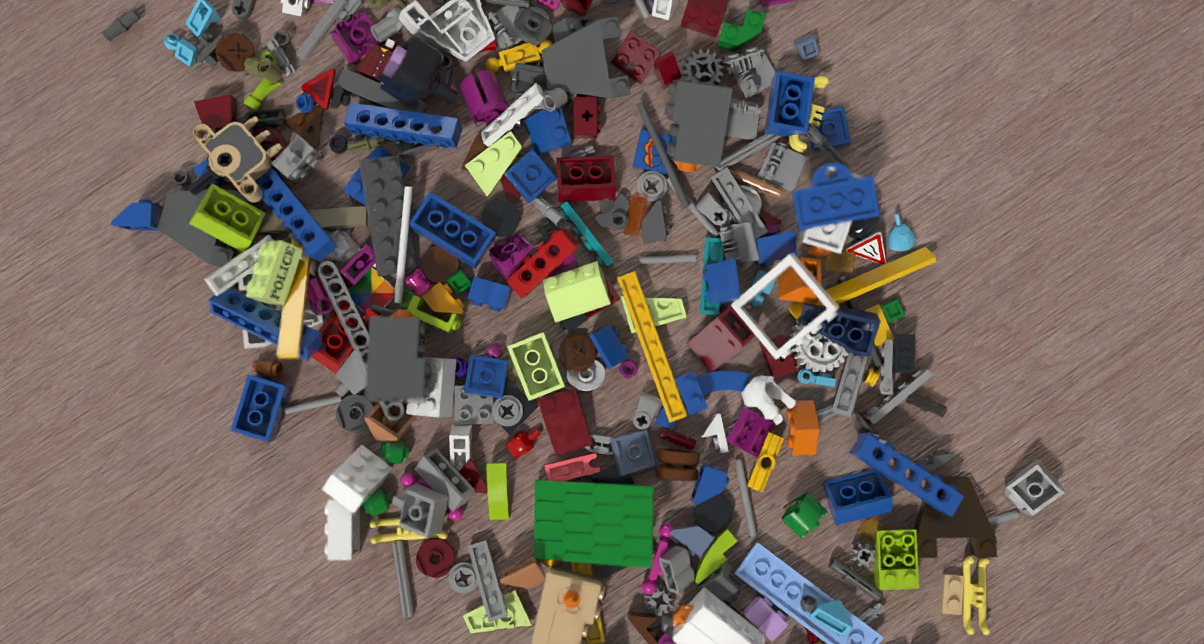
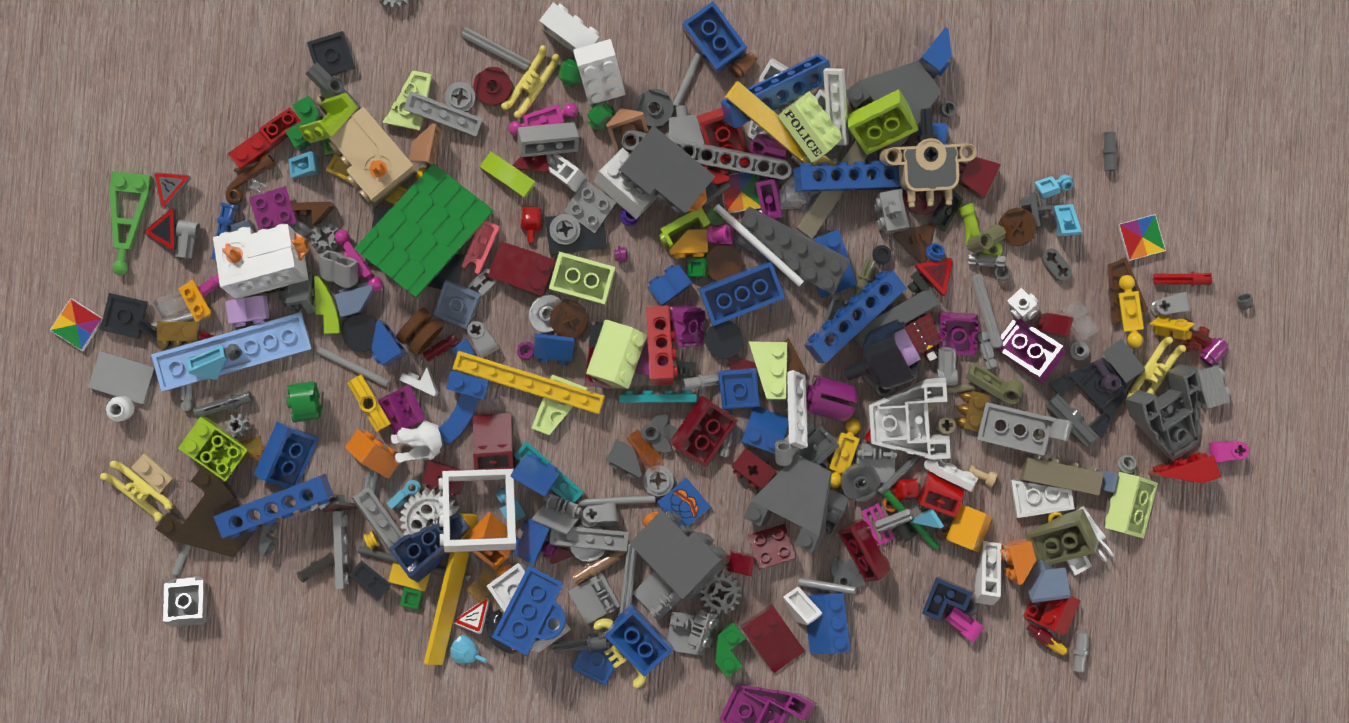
camera: 125 degrees right, 0 degrees up
(421, 510) = (536, 103): light grey hinge -> none
(486, 376) = (604, 233): blue tile -> none
(662, 153) = (677, 508): dark grey piece -> none
(667, 259) = (590, 448): light grey bar -> none
(806, 47) = (677, 693): sand blue slope -> none
(887, 368) = (368, 557): light grey hinge -> none

